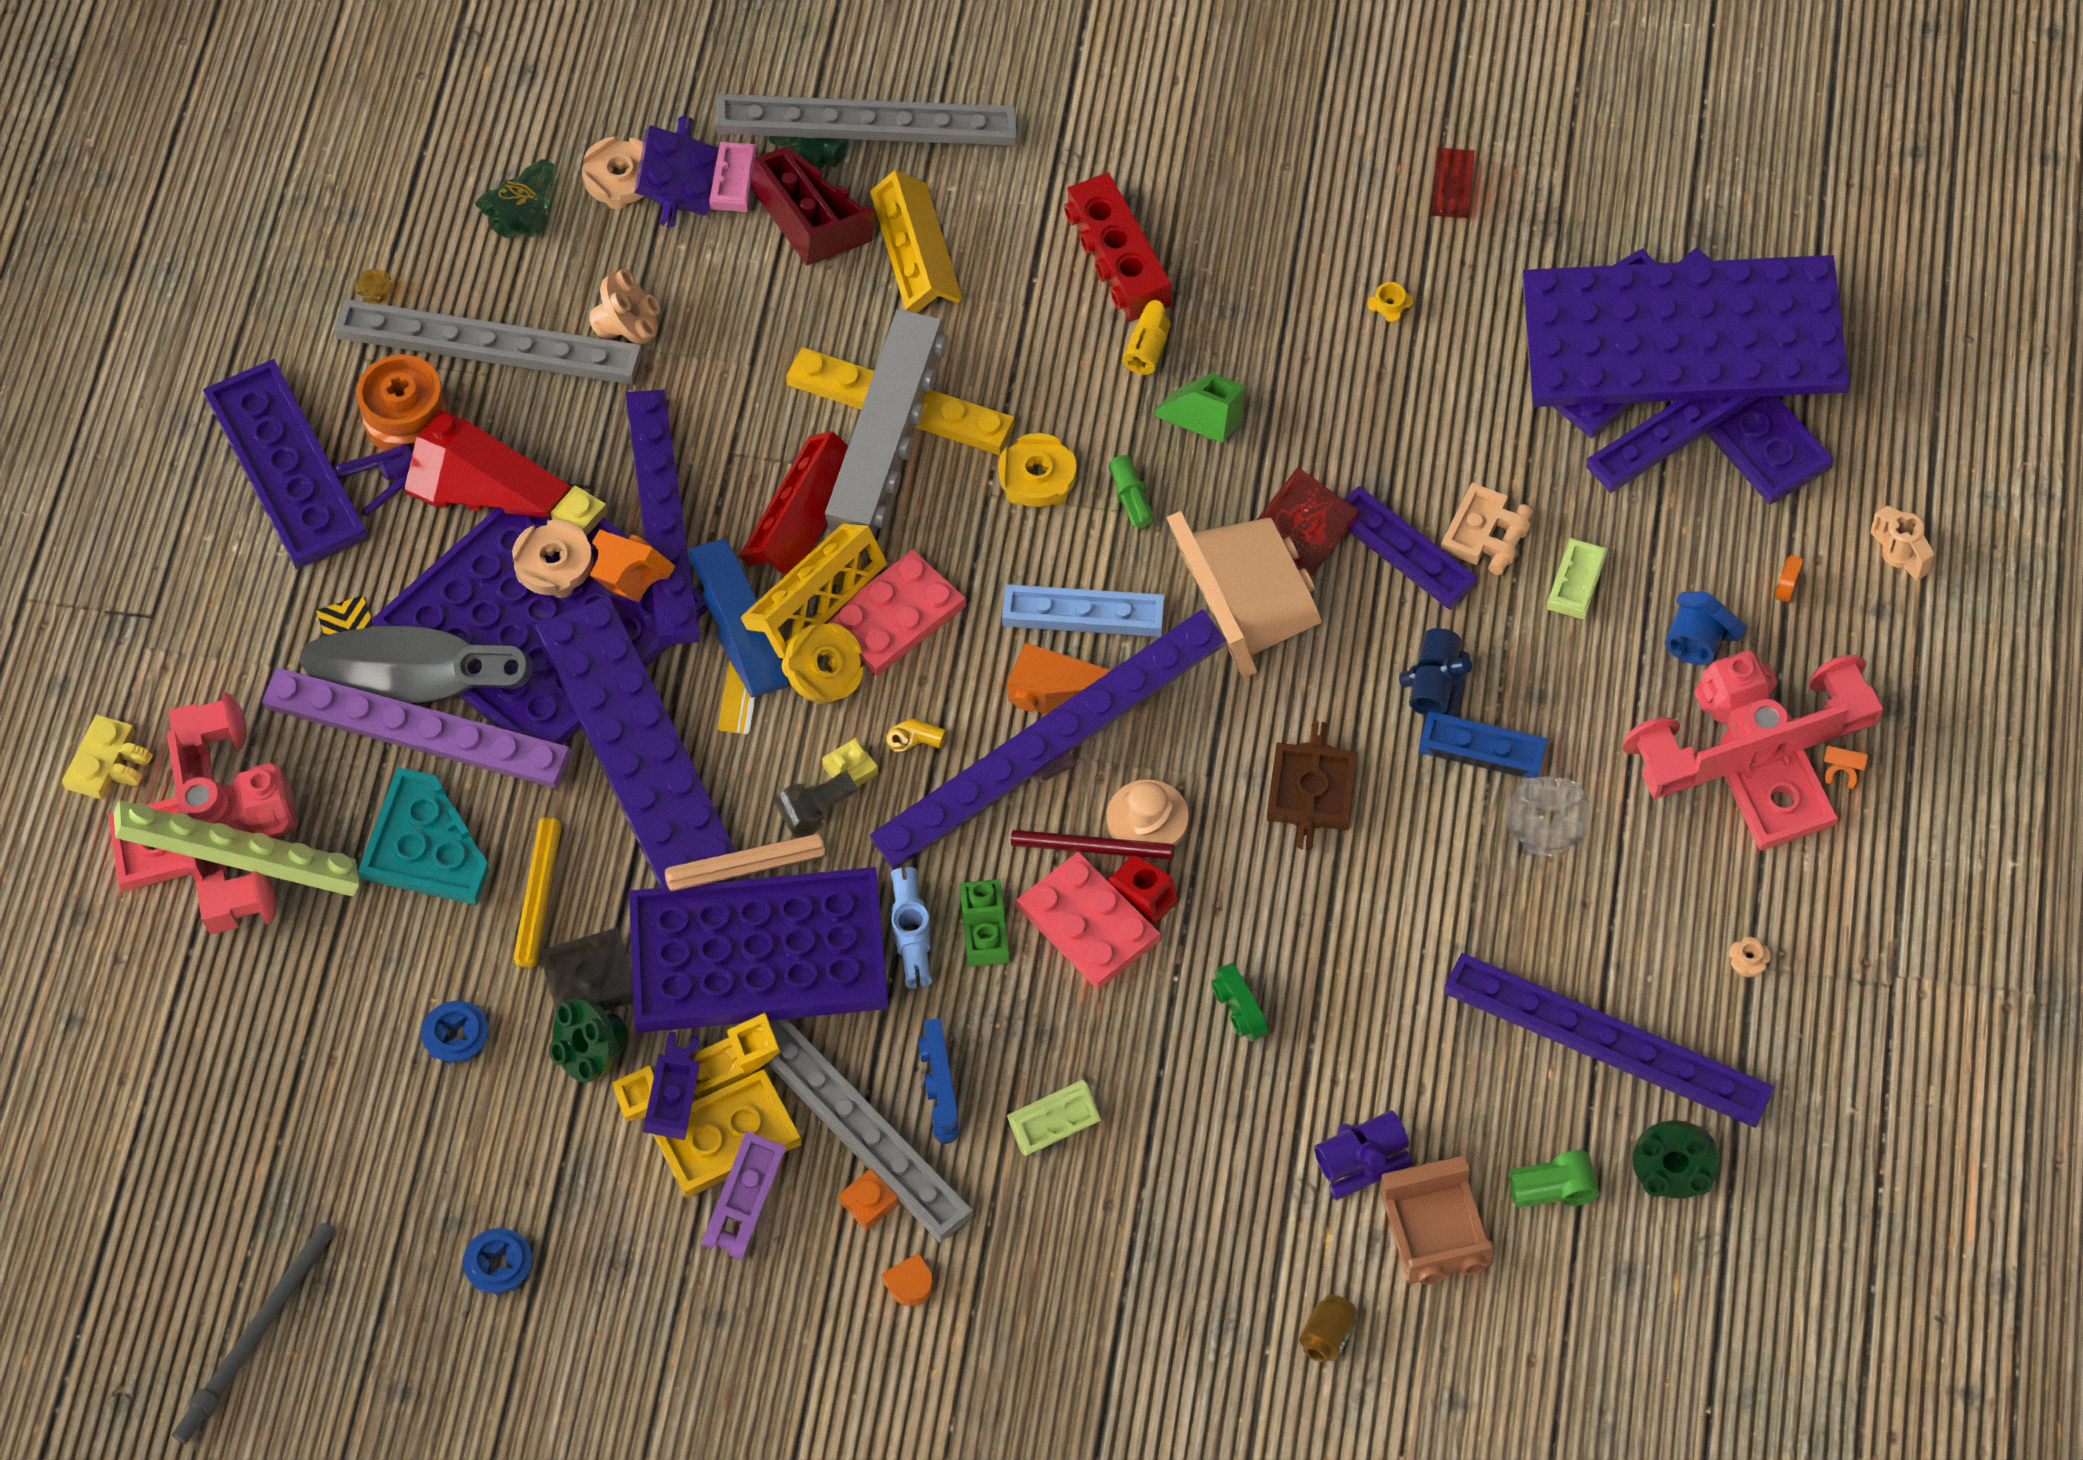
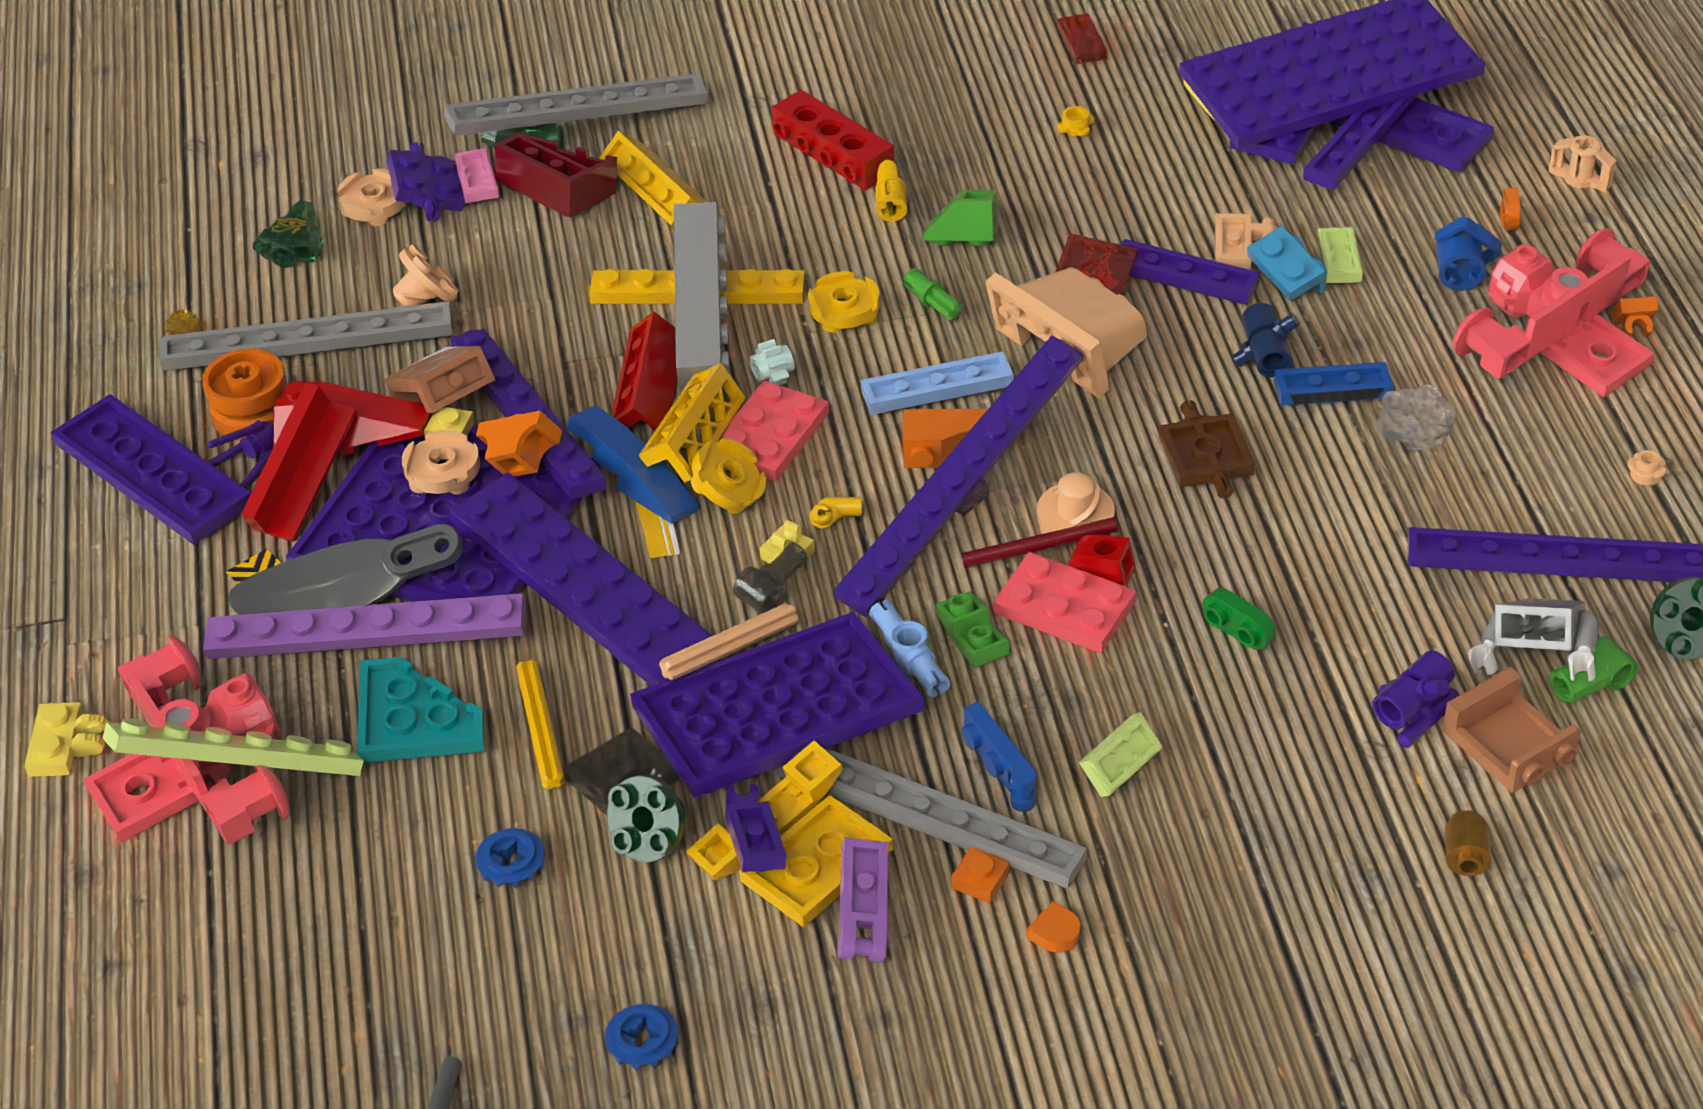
camera: 20 degrees left, 15 degrees down
(417, 515) = (298, 464): none -> red panel
(588, 452) = (442, 377): none -> nougat panel
(926, 533) = (772, 362): none -> light aqua gear
(1508, 578) = (1288, 263): none -> dark azure bracket
(1521, 1119) = (1542, 626): none -> light grey torso

